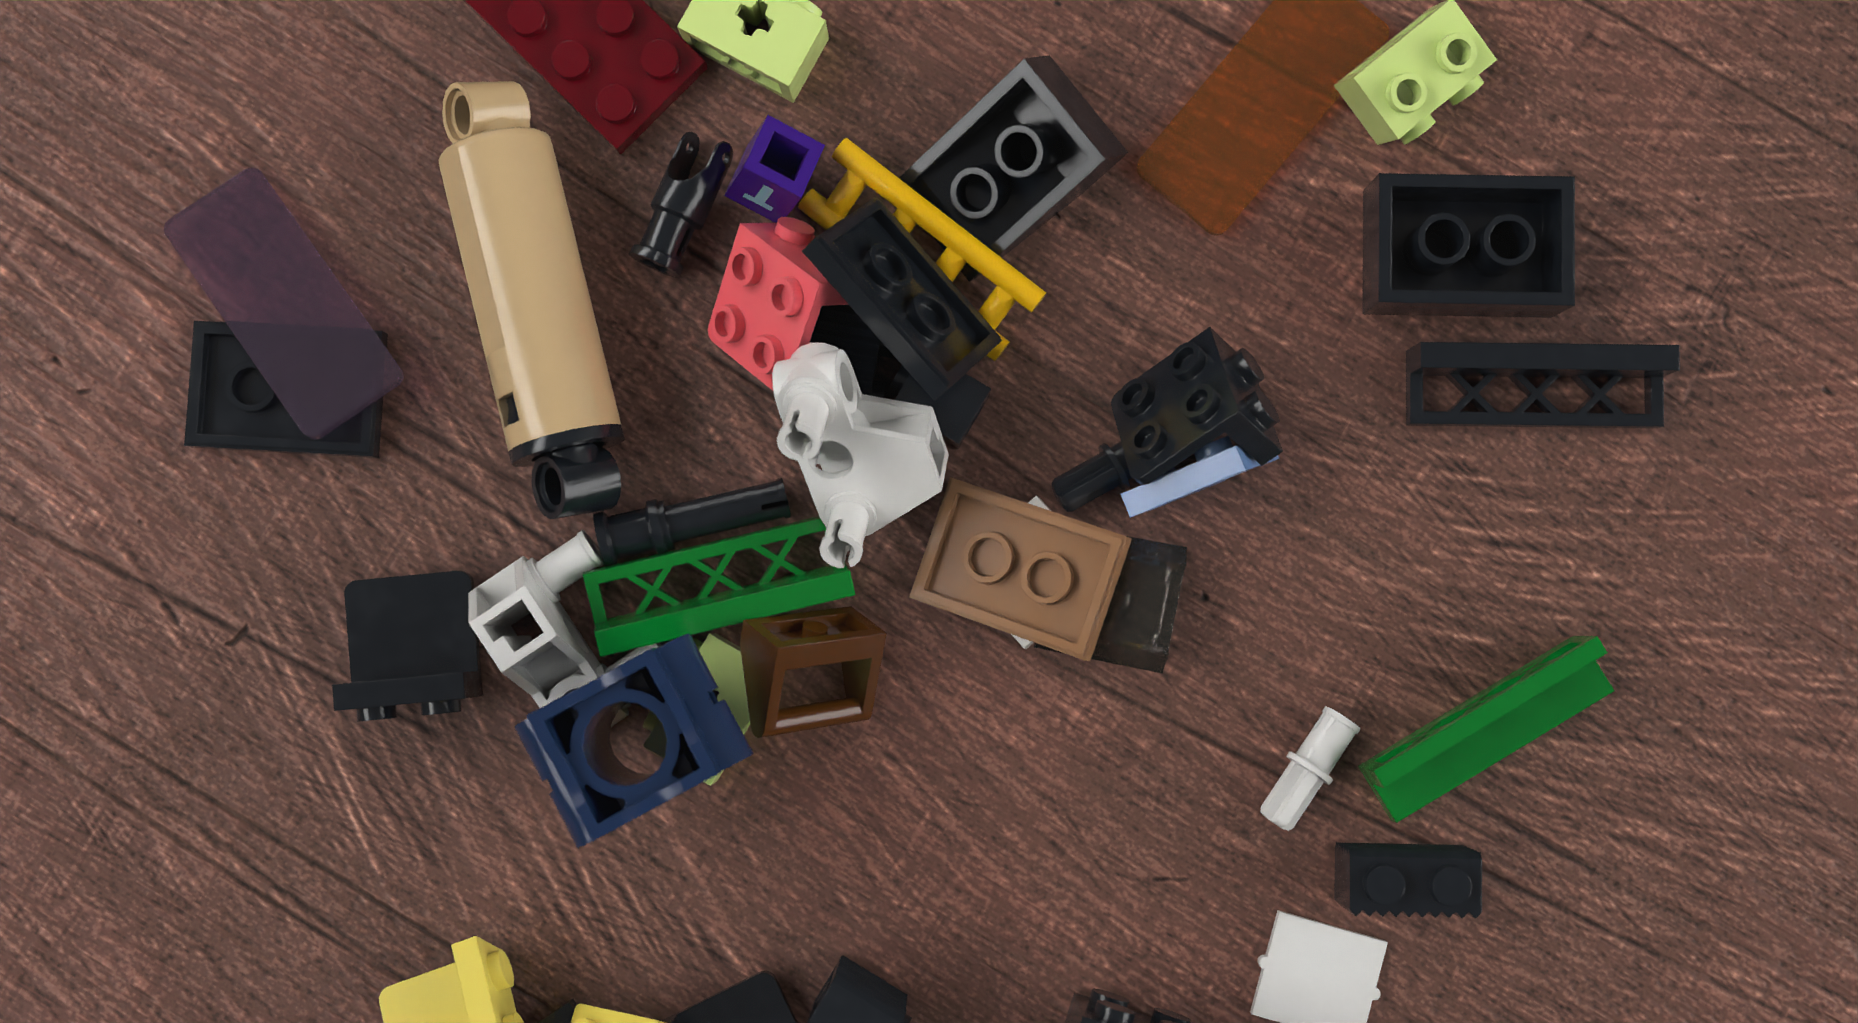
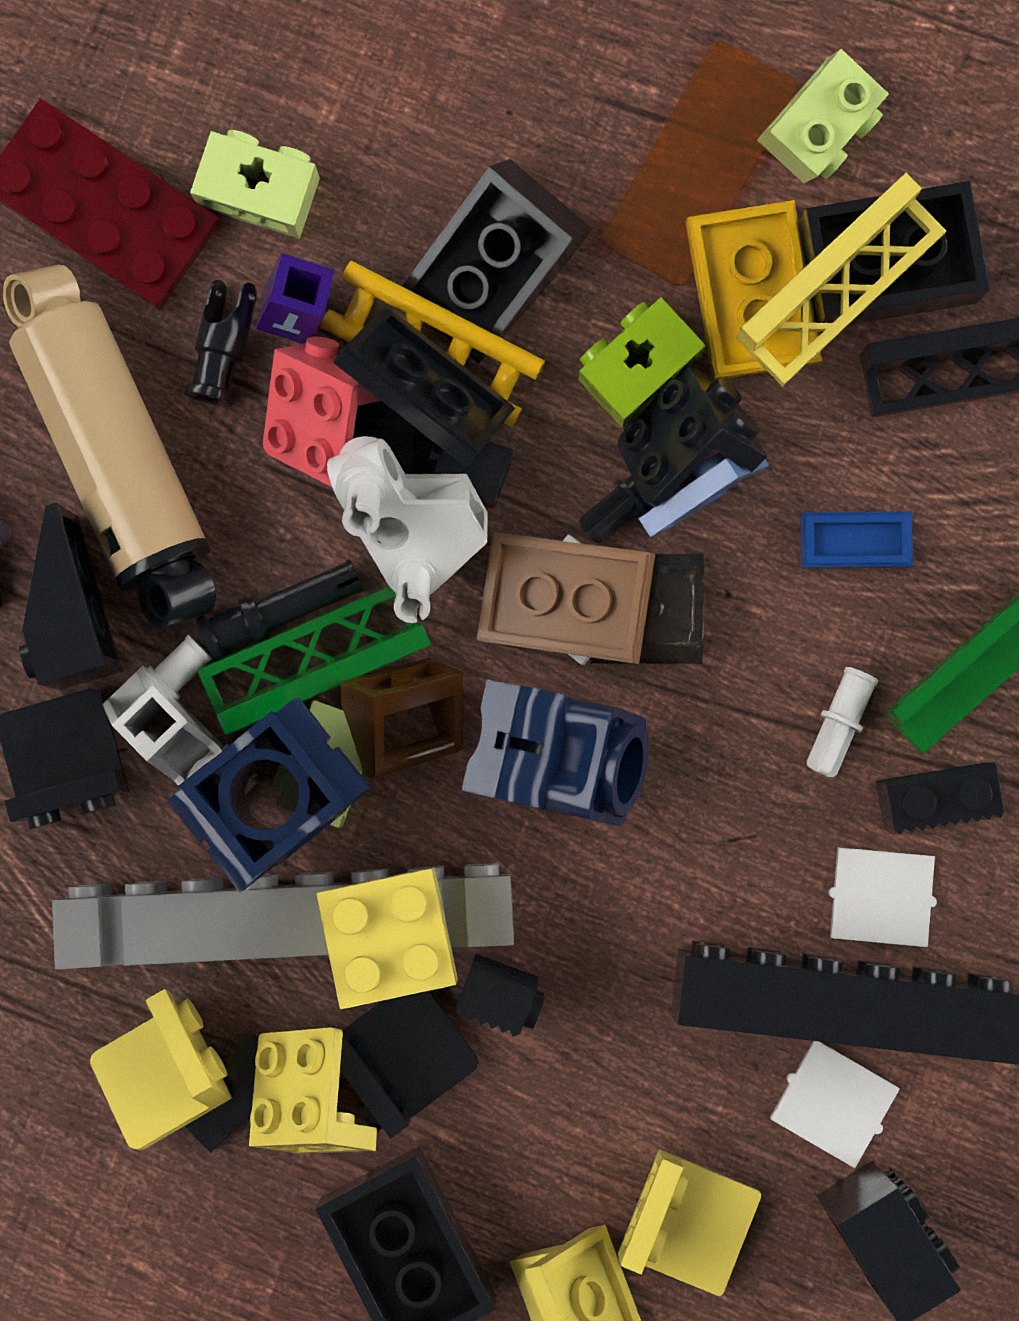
camera: 10 degrees left, 0 degrees up
(444, 483) = (64, 613): none -> black slope
(626, 879) = (258, 923): none -> light grey brick
(739, 935) = (387, 938): none -> light yellow brick
(977, 752) = (558, 753): none -> dark blue piece
(1191, 304) = (626, 390): none -> lime brick
(1299, 255) = (738, 267): none -> yellow tile
(1364, 562) = (856, 540): none -> blue tile
(1393, 243) = (827, 265): none -> light yellow fence

